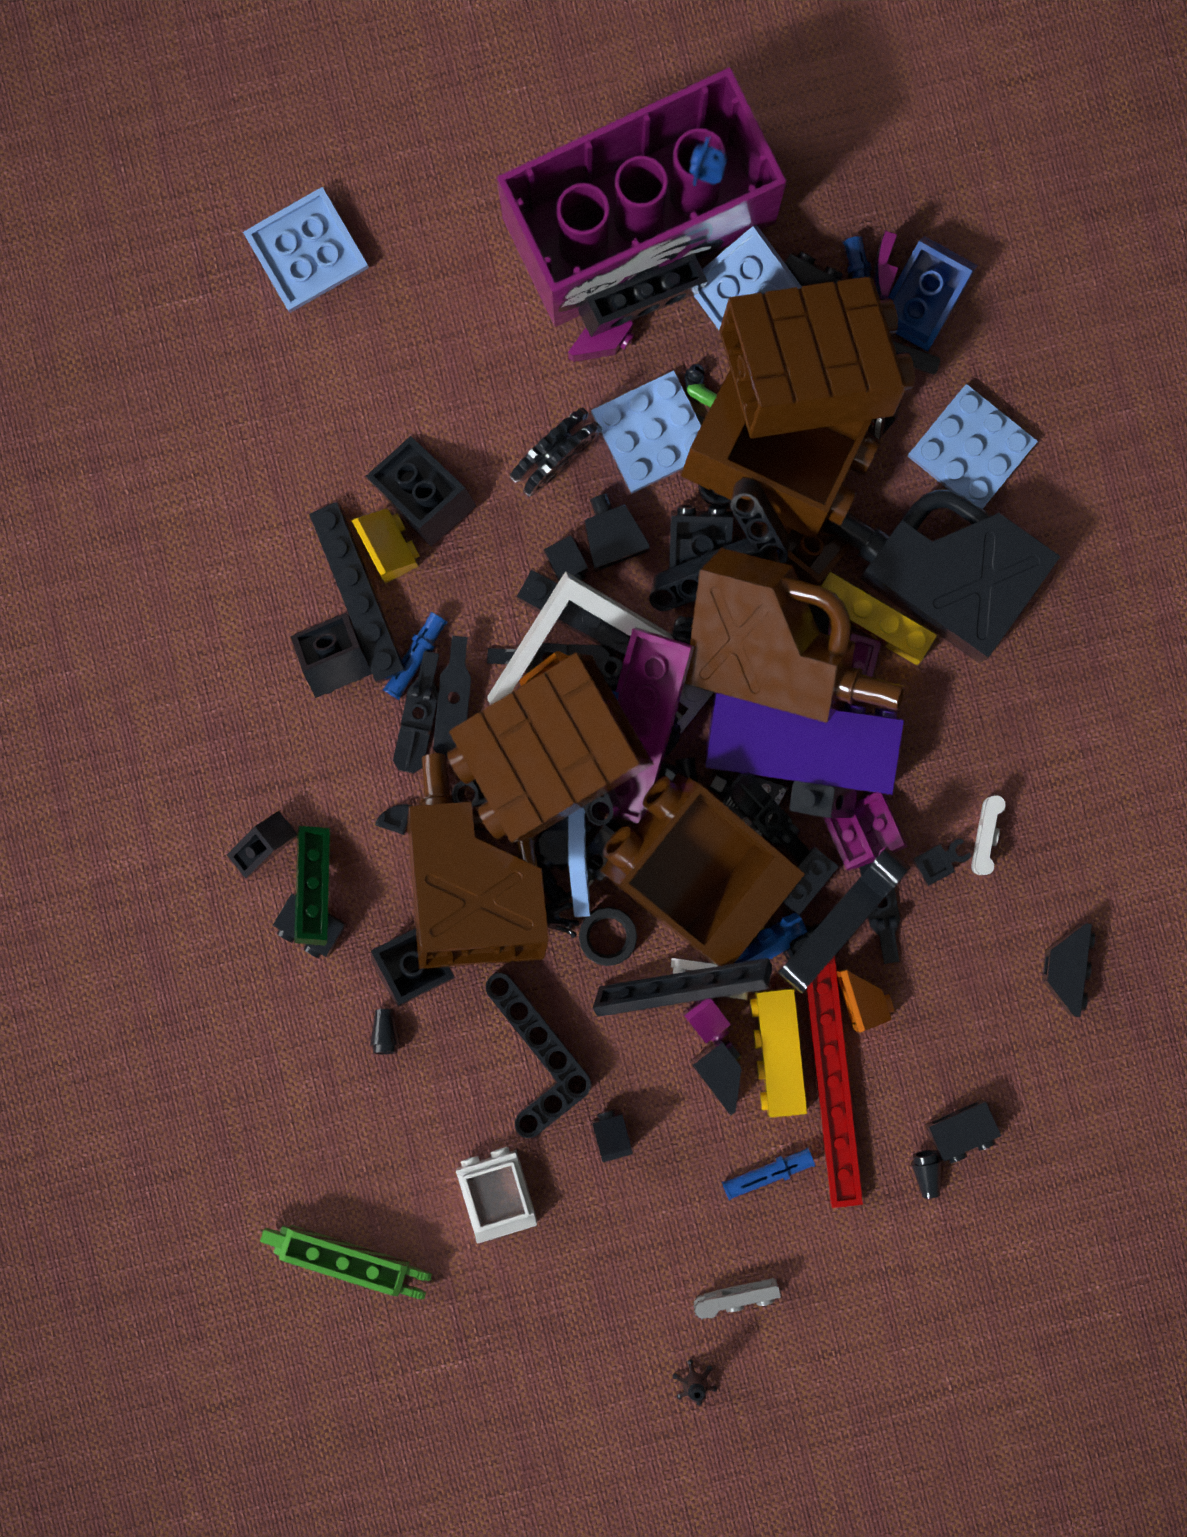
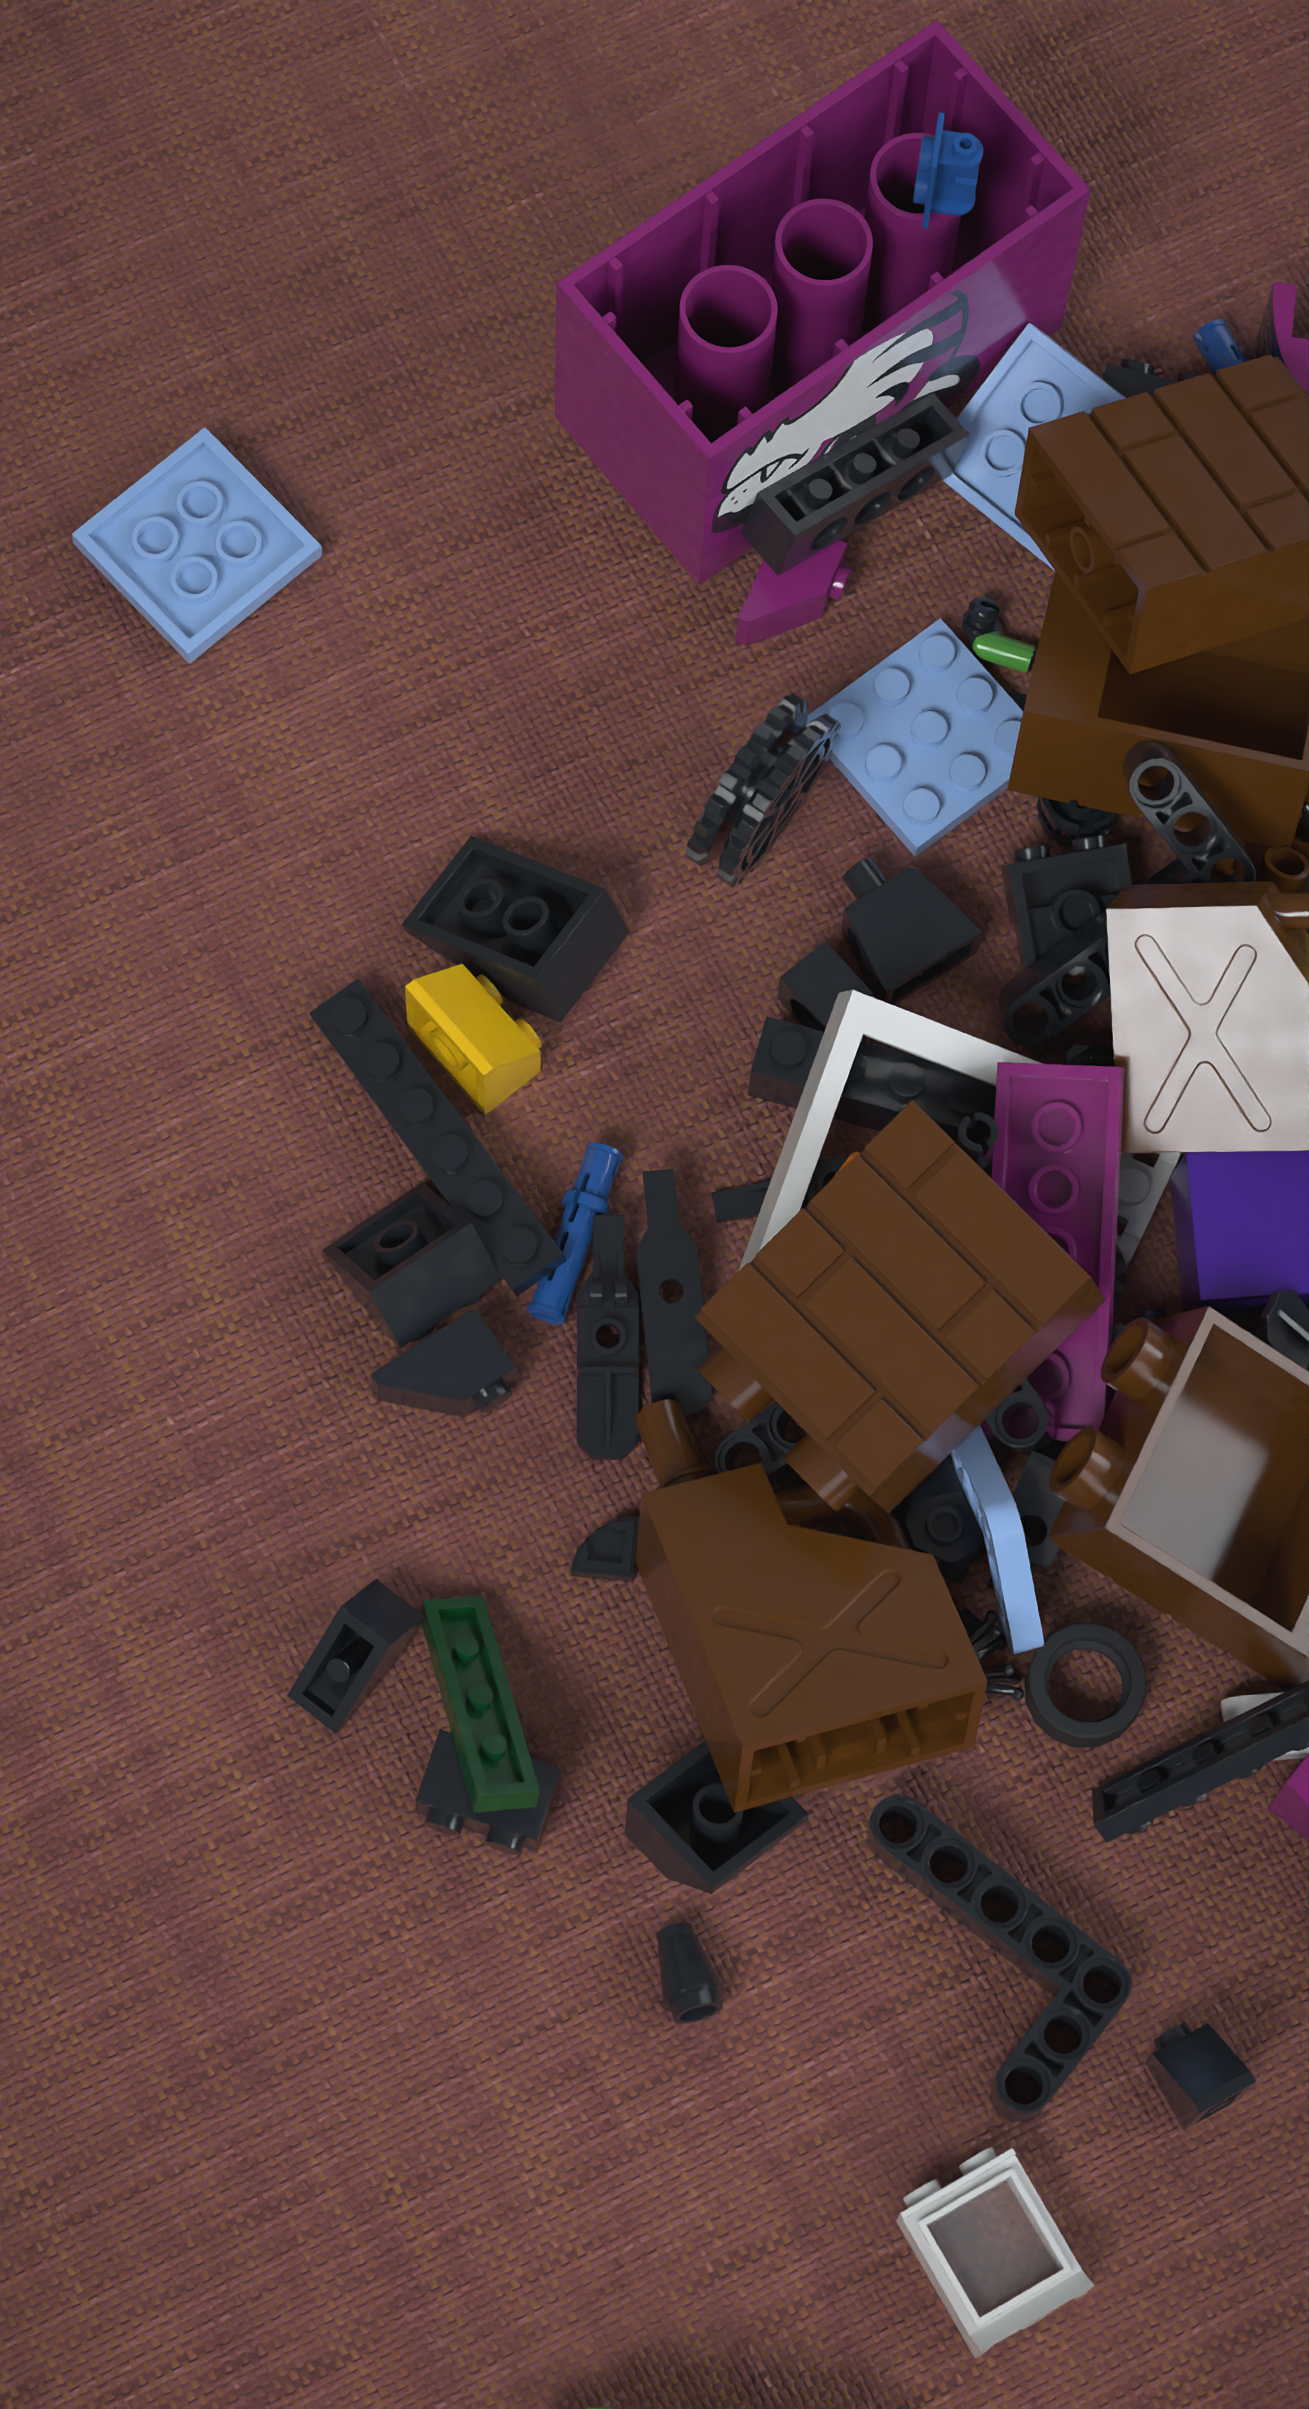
camera: 20 degrees left, 15 degrees down
(338, 713) = (450, 1371): none -> black slope

